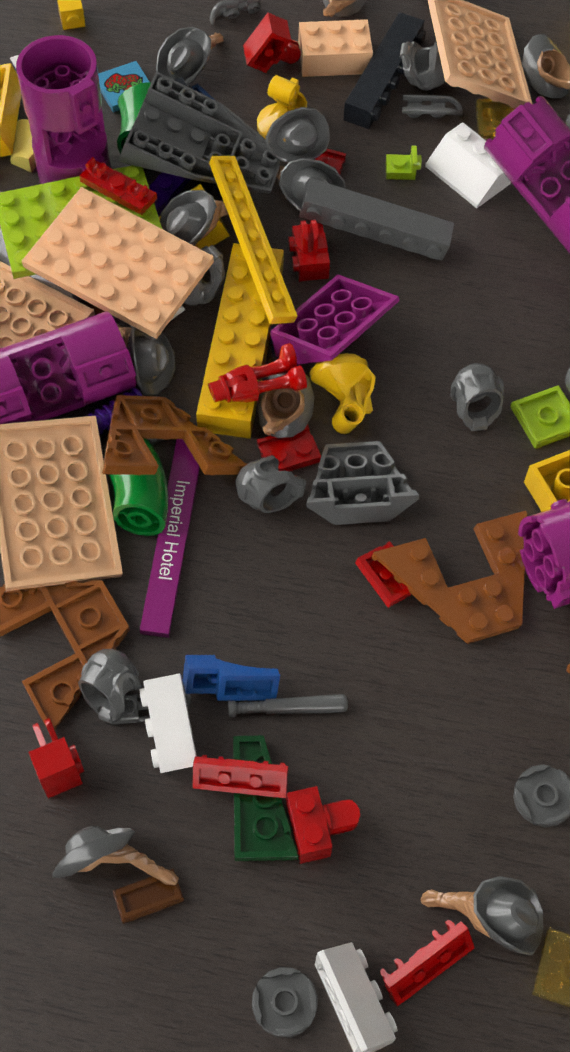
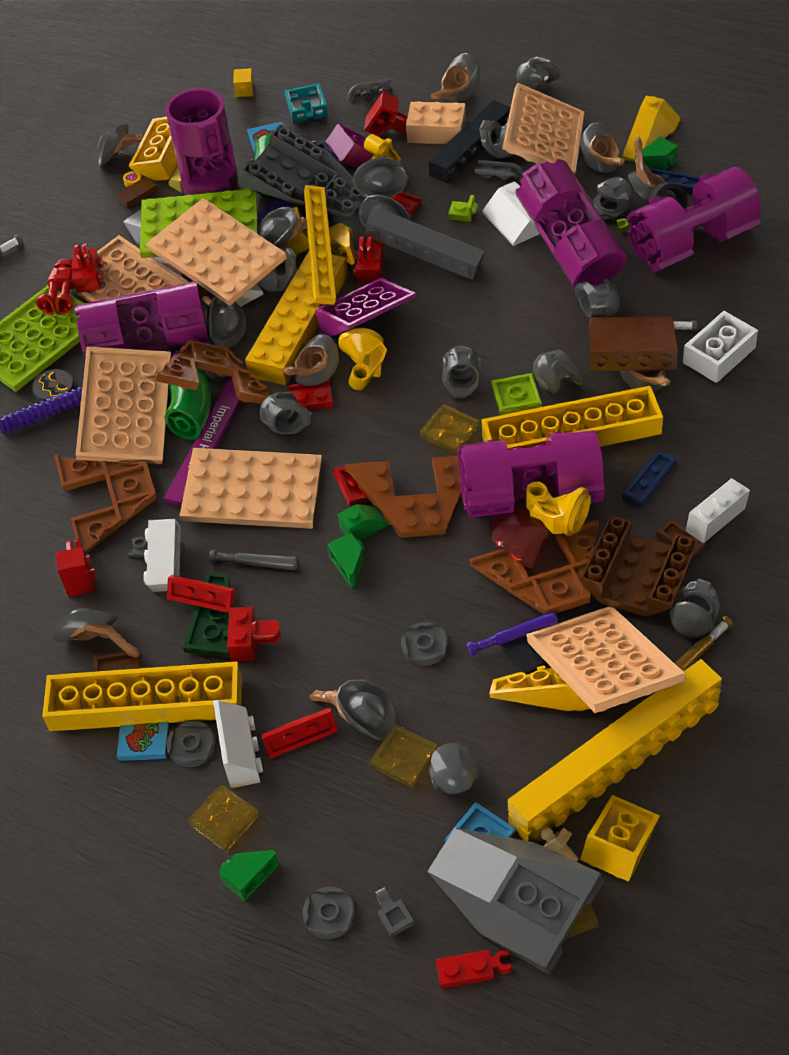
camera: 20 degrees right, 10 degrees down
(112, 675) = (124, 520): dark grey helmet -> none
(117, 186) = (231, 200): red plate -> none
(156, 29) = (306, 104): none -> teal piece
(186, 53) = (319, 118): dark grey hat -> none
(202, 947) = (139, 695): none -> yellow brick
(216, 1002) = (143, 741): none -> dark azure tile
(227, 680) = (215, 535): blue slope -> none
(236, 89) = (348, 146): none -> magenta slope
(242, 382) = (285, 340): red piece -> none
(253, 598) = (251, 488): none -> light nougat plate
(275, 228) = (342, 242): none -> yellow slope
(359, 485) = (351, 423): dark grey wedge -> none
(412, 631) = (361, 521): none -> green slope
(412, 686) = (347, 557): none -> green slope
(482, 477) = (449, 428): none -> clear yellow plate

